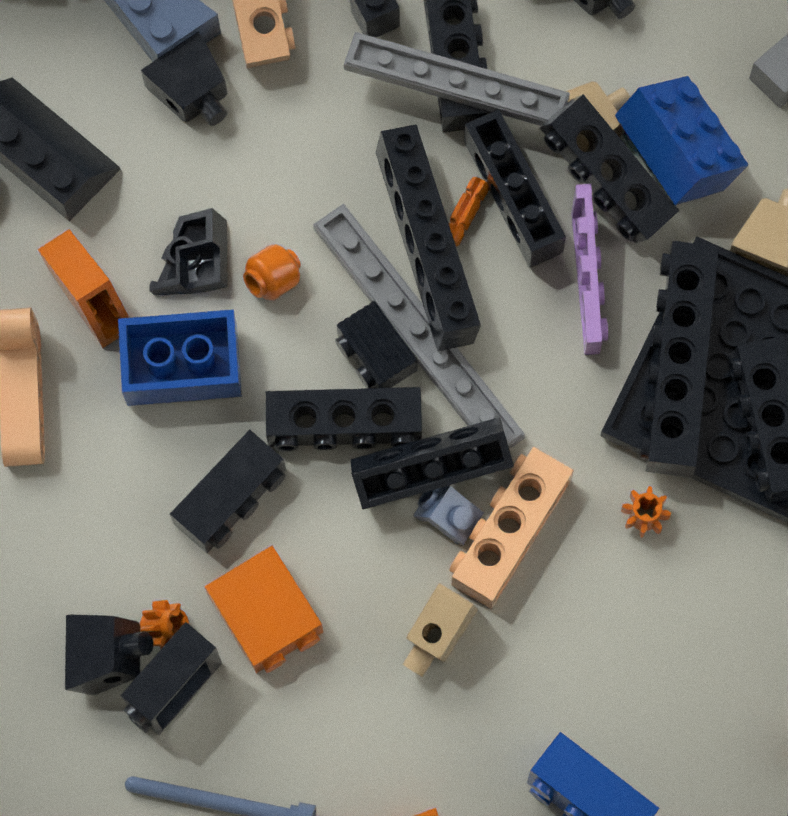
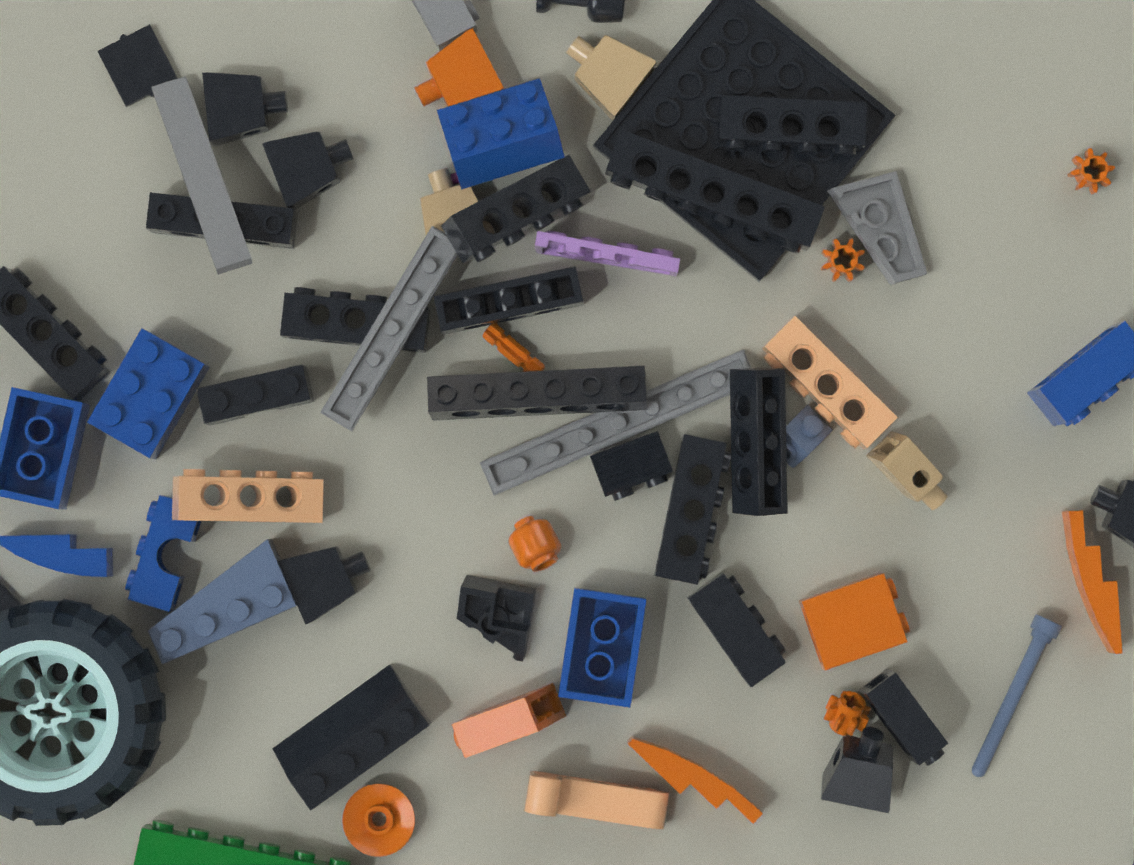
camera: 80 degrees left, 15 degrees up
(67, 471) = (682, 772): none -> orange slope
(695, 544) = (882, 224): none -> light grey wing
(734, 93) = (459, 73): none -> orange torso

